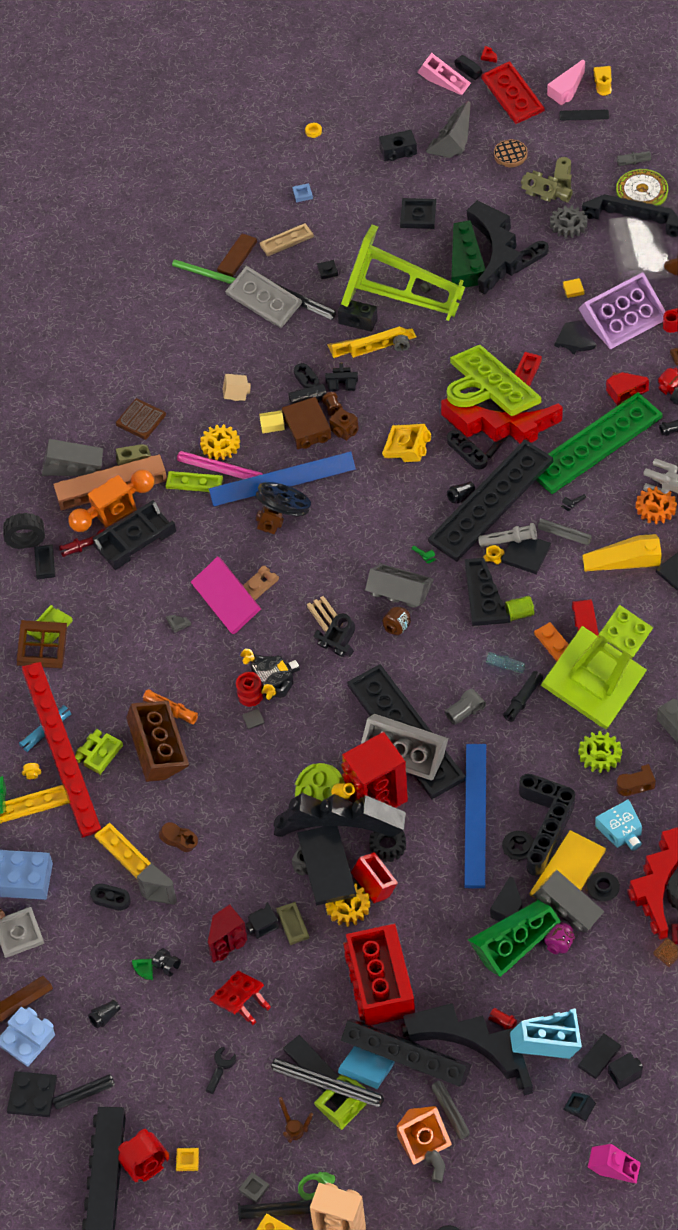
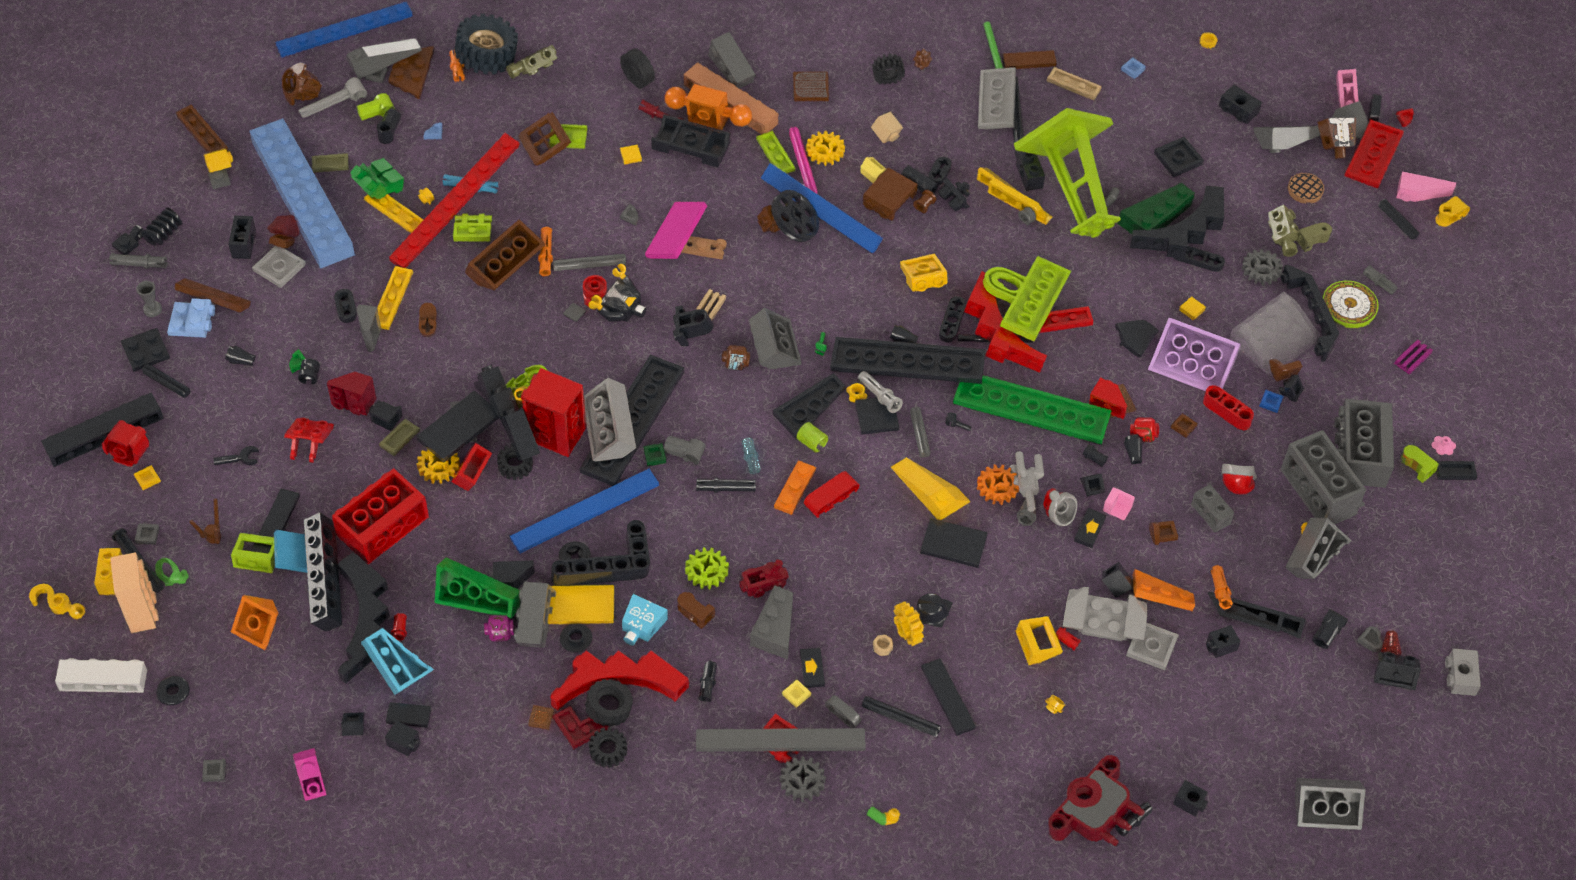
camera: 50 degrees right, 0 degrees up
(44, 562) = (626, 100): black tile -> none
(109, 588) = (630, 154): none -> yellow tile
(131, 453) = (767, 97): olive leg -> none
(174, 352) = (888, 62): none -> black tyre
(178, 325) = (922, 59): none -> reddish brown plant
(207, 679) = (589, 262): none -> dark grey axle
(327, 1082) = (260, 531): black axle -> none
(344, 424) = (907, 219): reddish brown brick -> none
(439, 1166) = (238, 648): dark grey arm -> none
(450, 1110) = (292, 634): dark grey axle -> none
(455, 732) = (654, 454): none -> dark green plate
(469, 87) = (1354, 111): none -> dark grey slope
(481, 102) = (1338, 134): none -> torso
(595, 674) = (778, 520): lime piece -> none
(639, 714) = (763, 578): none -> dark red brick

